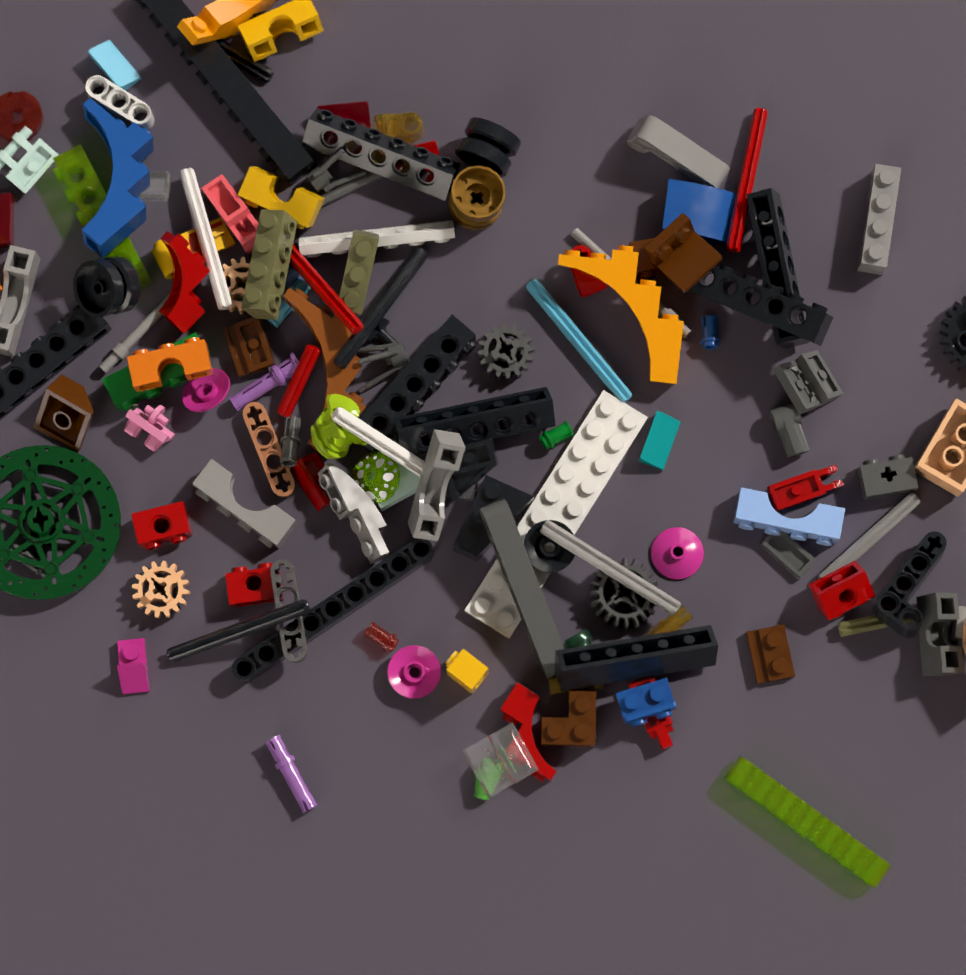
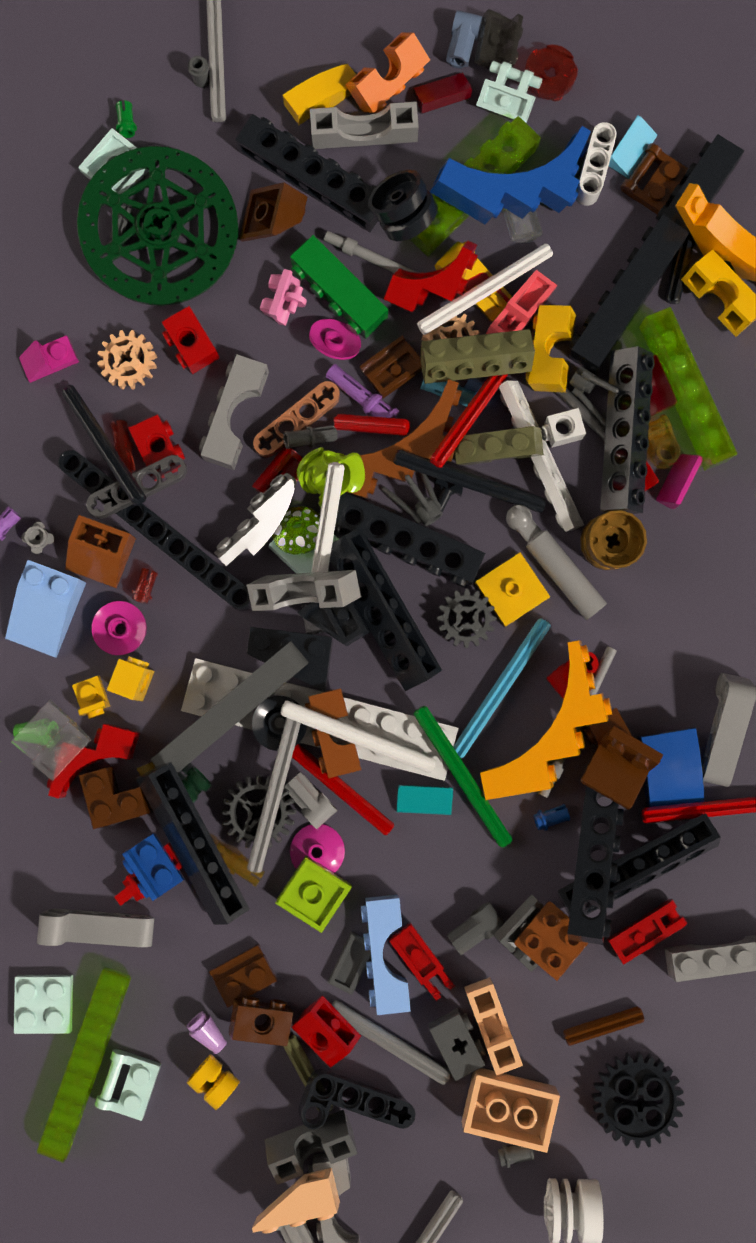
camera: 70 degrees right, 5 degrees up
(147, 366) = (334, 272): orange arch -> none
(156, 49) = (661, 184): none -> reddish brown plate
(234, 616) = (122, 443): none -> clear red axle
(295, 723) = (29, 537): none -> light grey plate
(336, 668) = (98, 551): none -> dark orange slope
(354, 199) = (572, 420): none -> white brick
(373, 86) = (692, 394): none -> clear neon green brick
(373, 737) = (43, 608): none -> light blue slope
(439, 123) = (679, 480): none -> dark pink slope
(470, 718) = (91, 697): none -> yellow bracket
(480, 255) = (556, 562): none -> light grey piece
(488, 145) = (669, 535): black wheel -> none
(491, 302) = (512, 589): none -> yellow plate
(551, 502) = (336, 758): none -> dark orange arch
(556, 435) = (397, 694): green pin -> none
(584, 476) = (357, 736): none -> white axle
(630, 510) = (343, 791): none -> red axle
(634, 541) = (314, 805): none -> light grey piece
(648, 398) = (462, 776): none -> green axle
(687, 772) = (94, 927): none -> light grey beam
(715, 566) = (313, 894): none -> lime plate
(742, 846) = (43, 1004): none -> light aqua plate
(810, 661) = (273, 1031): none -> reddish brown brick
(811, 701) = (206, 1032): none -> lavender cone
(818, 365) = (547, 941): none -> dark orange bracket
(837, 281) = (646, 932): none -> red plate
(844, 782) = (137, 1086): none -> light aqua plate
(864, 700) = (213, 1082): none -> yellow wheel
(892, 440) = (493, 1026): none -> light nougat arch
(909, 344) = (603, 1025): none -> reddish brown axle

